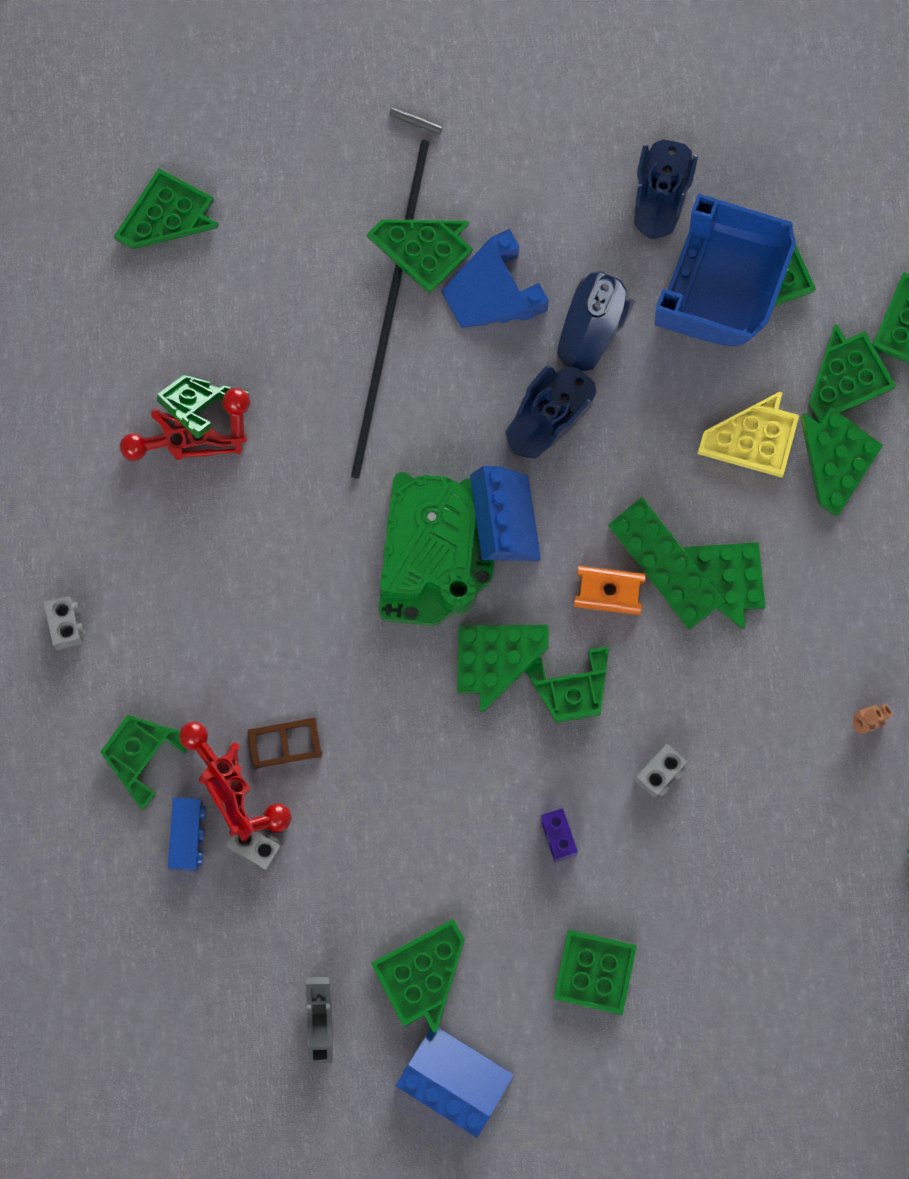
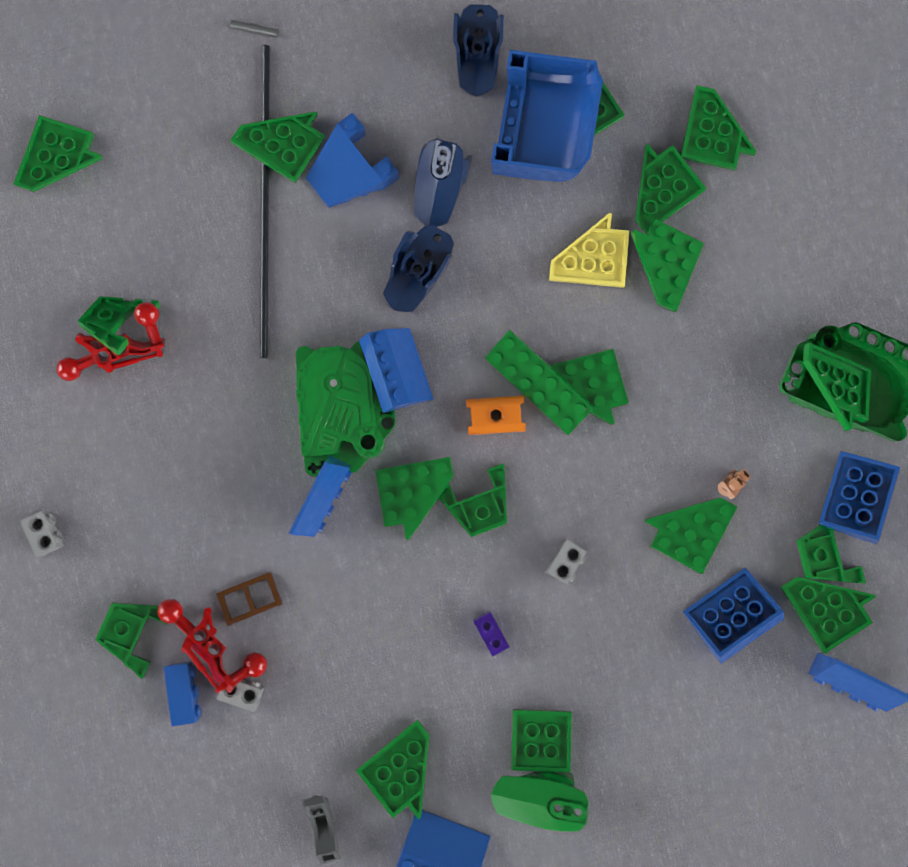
camera: 10 degrees left, 10 degrees up
(393, 639) = (320, 498): none -> blue slope
(574, 1035) = (533, 800): none -> green piece
(814, 767) = (692, 532): none -> green wing
(847, 871) = (734, 615): none -> blue slope

